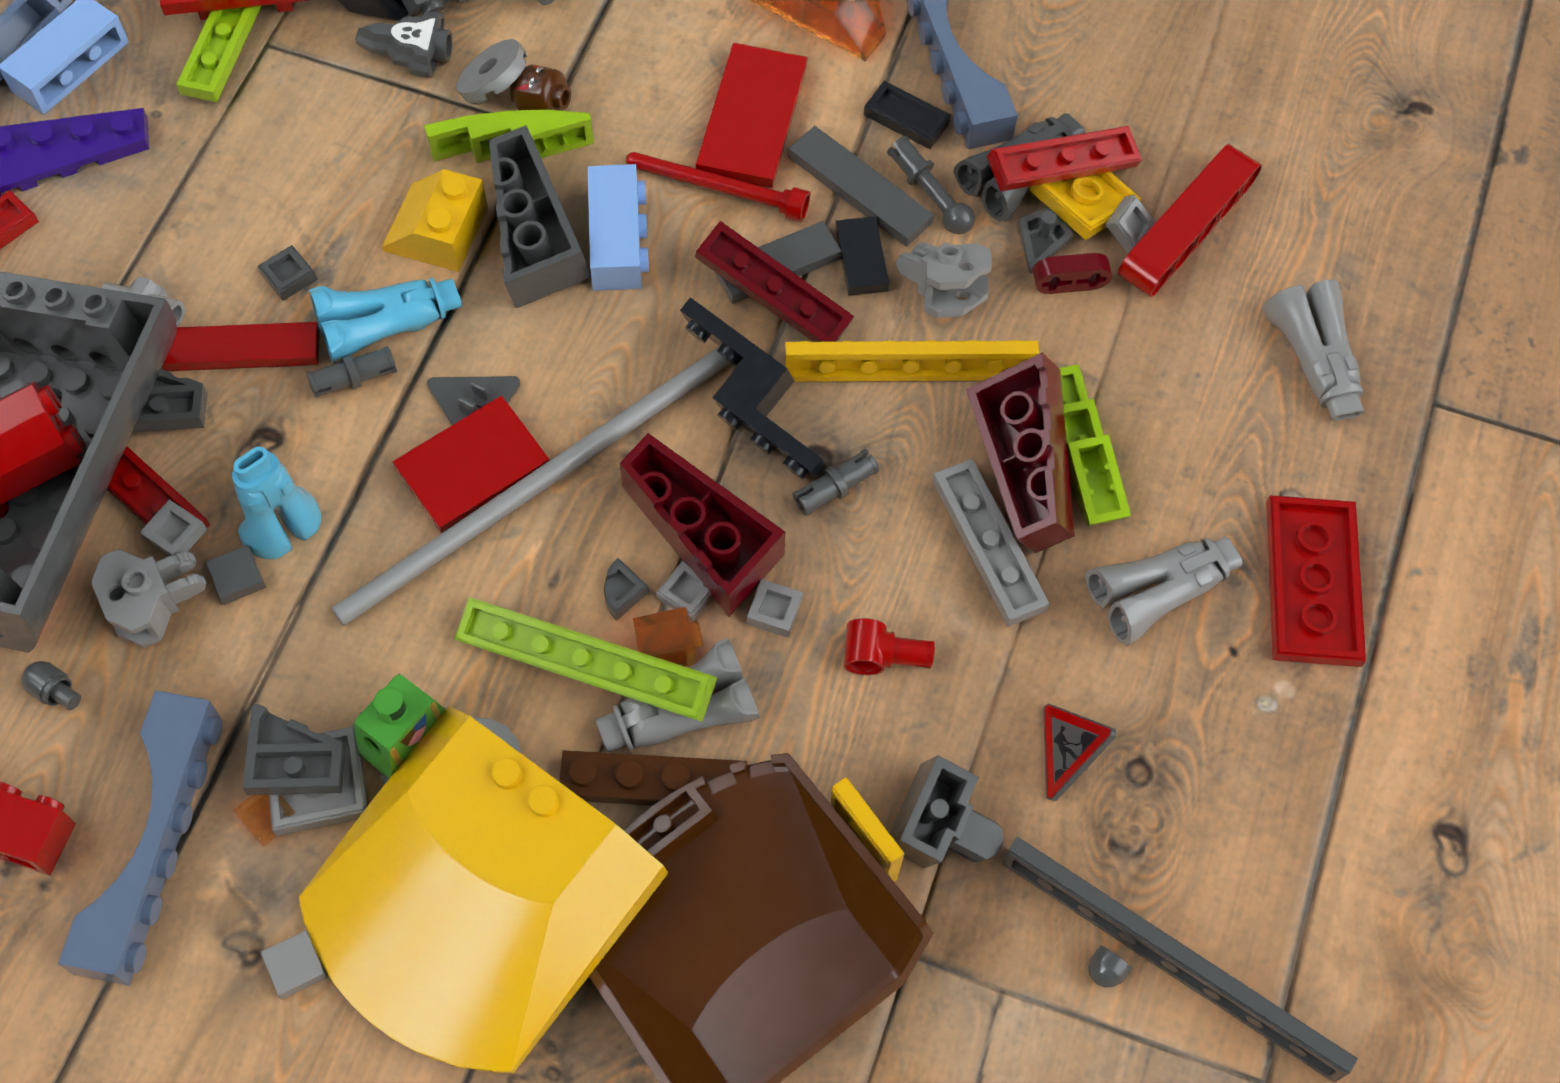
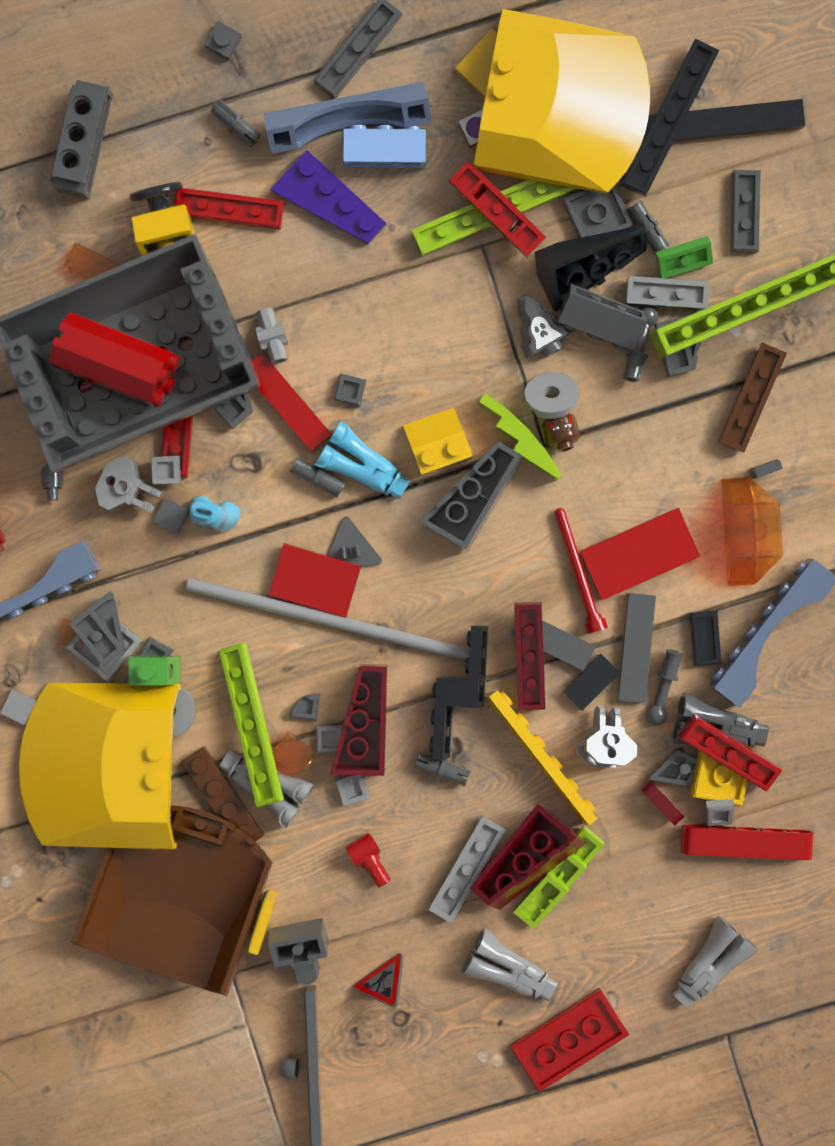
camera: 55 degrees right, 25 degrees up
(616, 227) = (506, 542): light blue brick -> none

